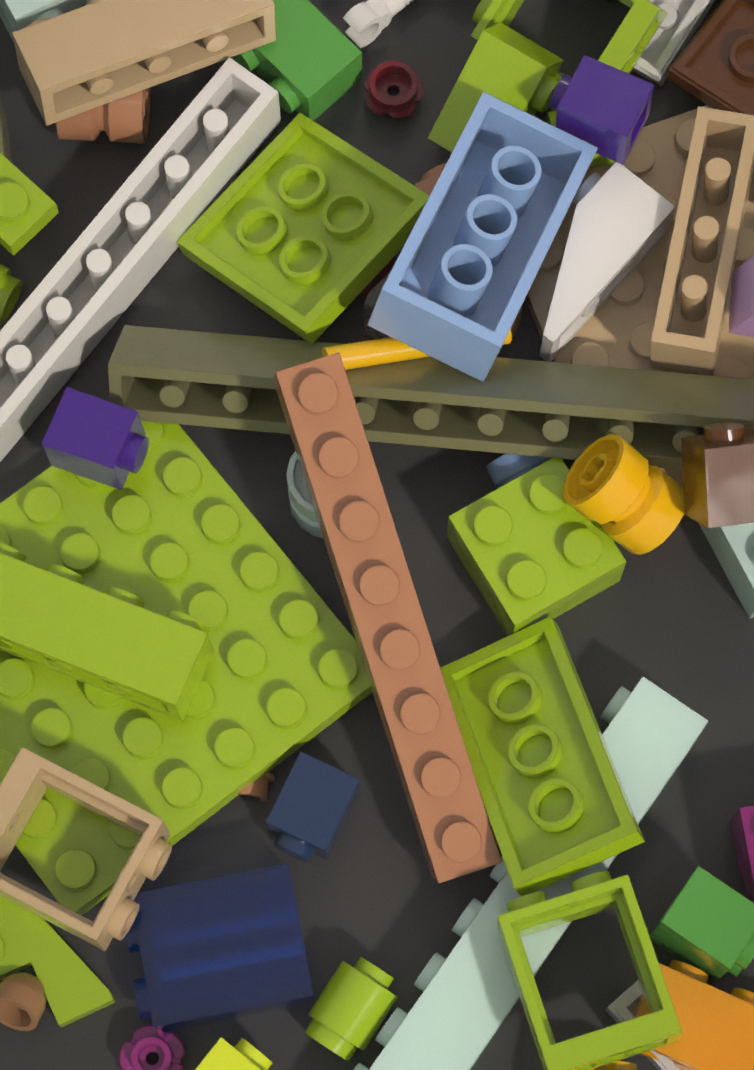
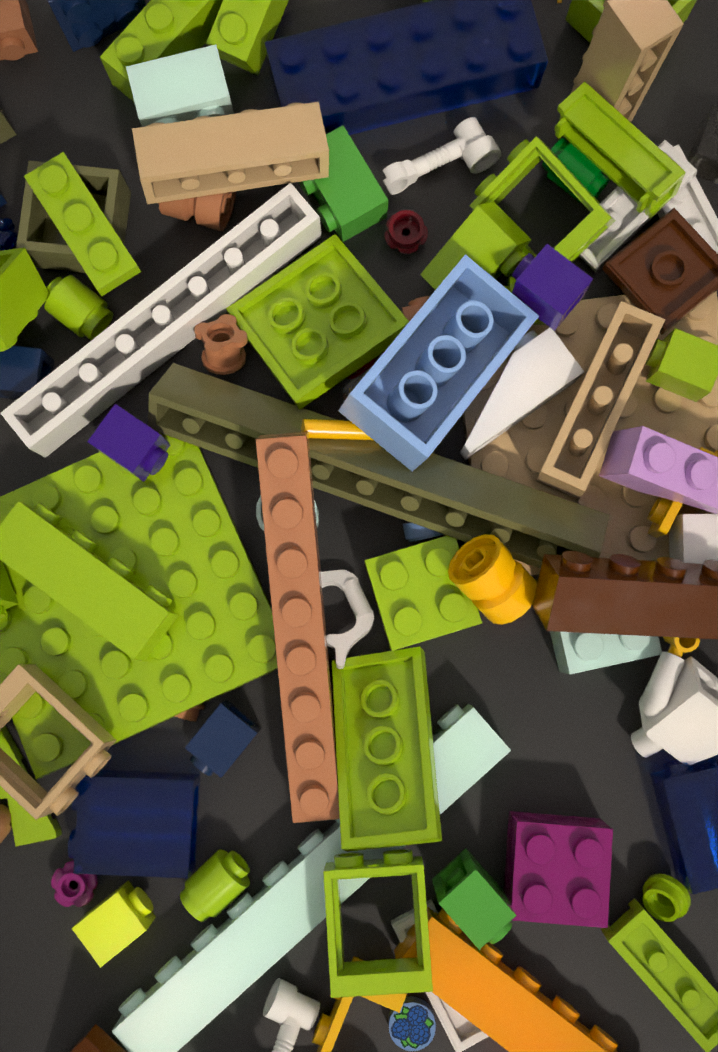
camera: 15 degrees right, 10 degrees up
(184, 288) = (222, 345): none -> nougat brick
(464, 599) = (360, 606): none -> white helmet

